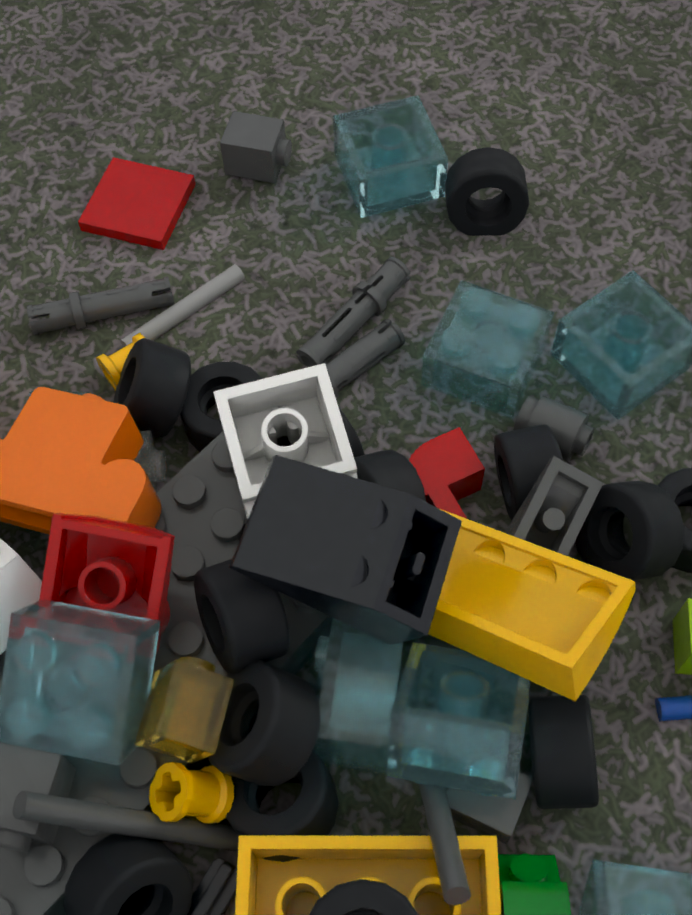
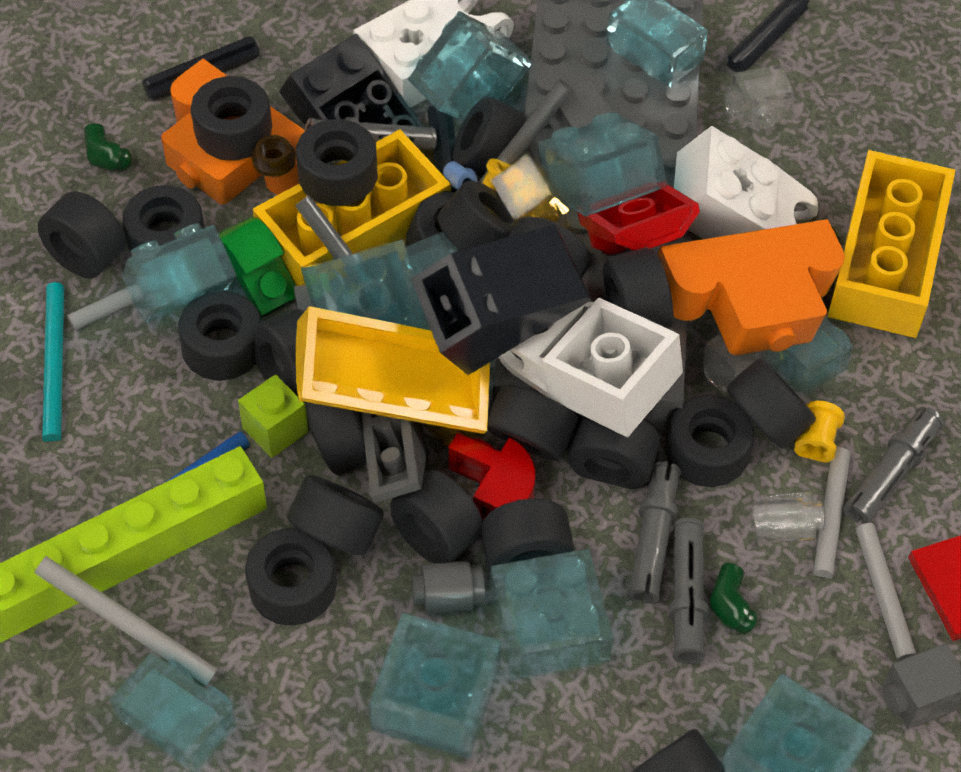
camera: 140 degrees right, 5 degrees down
(190, 501) = (639, 285): none -> black tyre
(206, 235) = (885, 591): none -> light grey bar
(215, 858) = (457, 175): none -> medium blue arm
(227, 311) = (788, 517): none -> clear brick
(331, 293) = (728, 603): none -> dark green arm
(465, 397) = (525, 531): none -> black tyre
(625, 694) = (273, 416): none -> lime brick
(631, 808) = (220, 358): none -> black tyre

